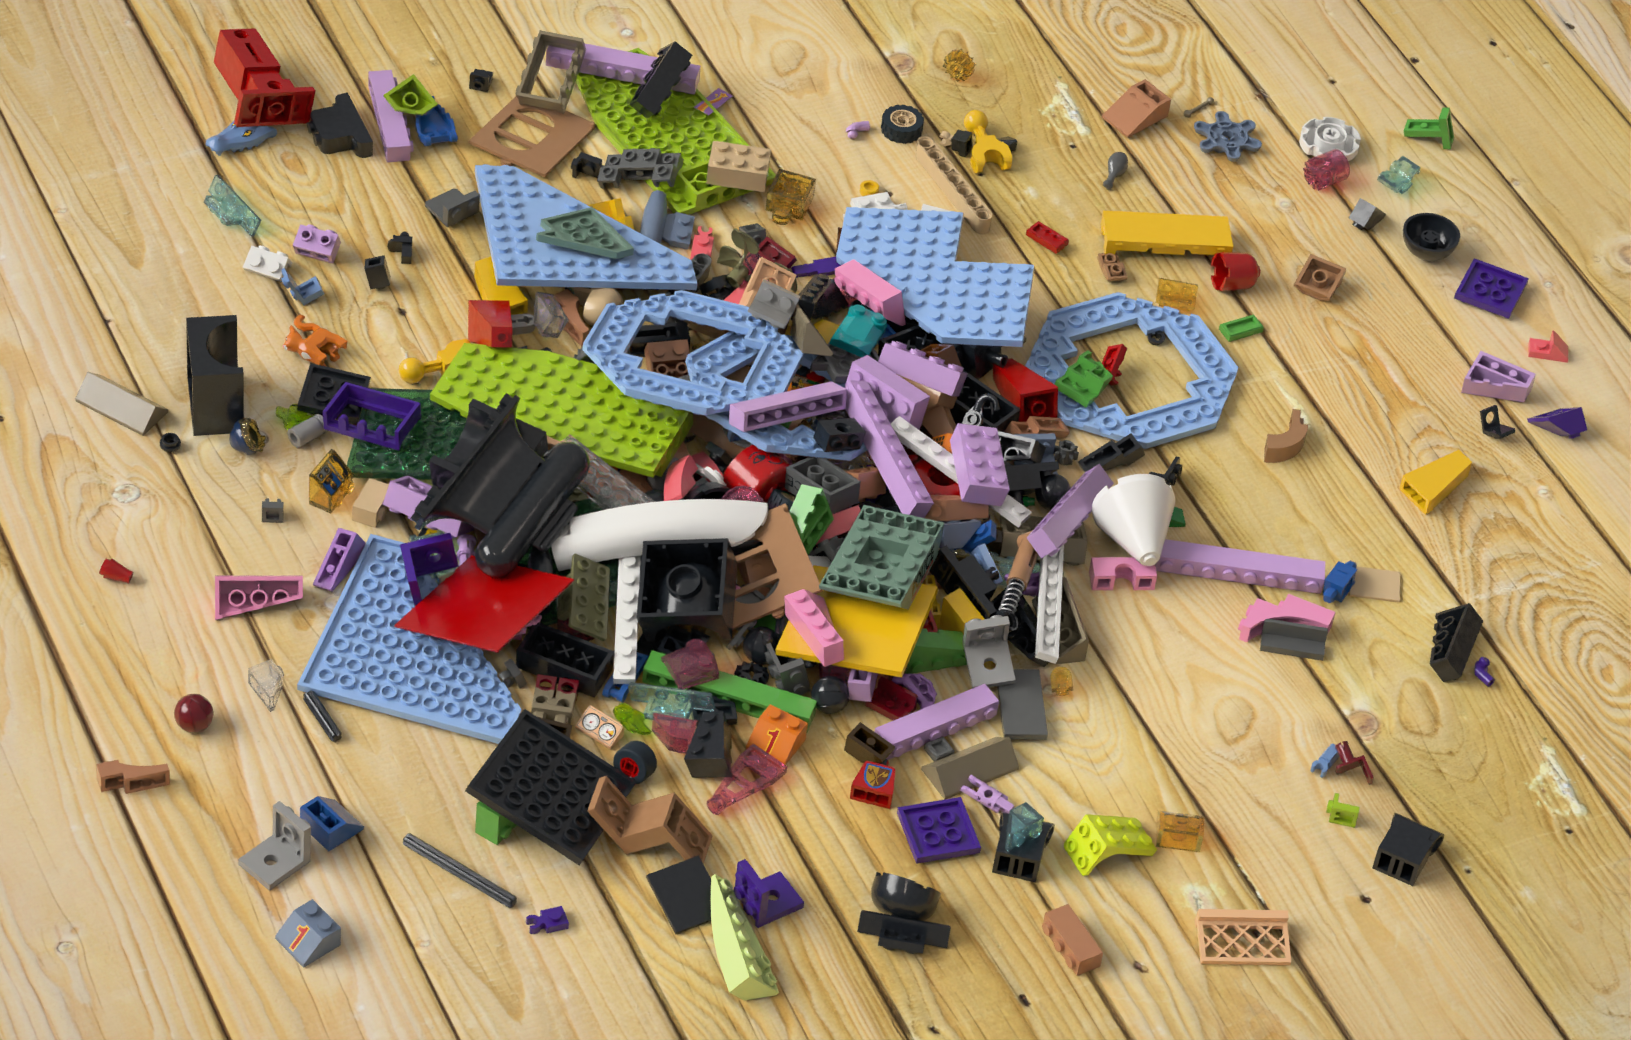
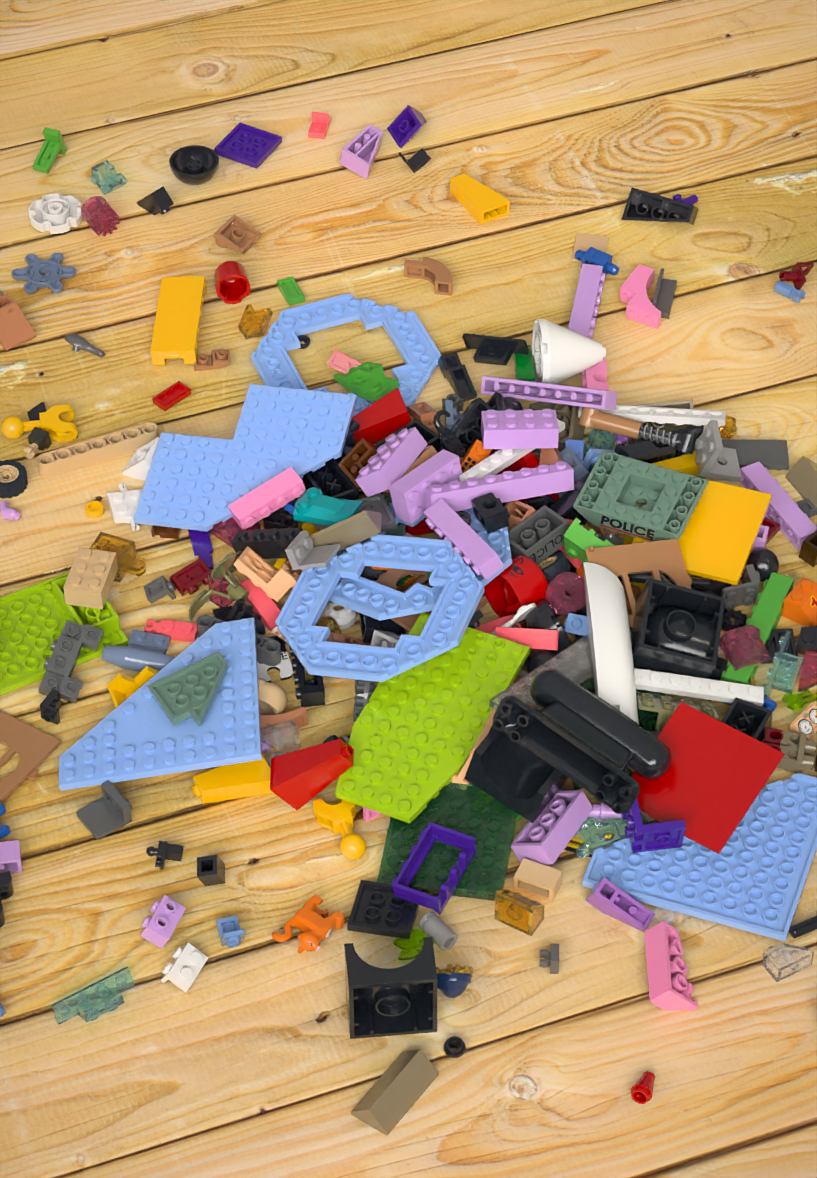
camera: 80 degrees left, 0 degrees up
(813, 622) = (722, 547): bright pink wedge -> none

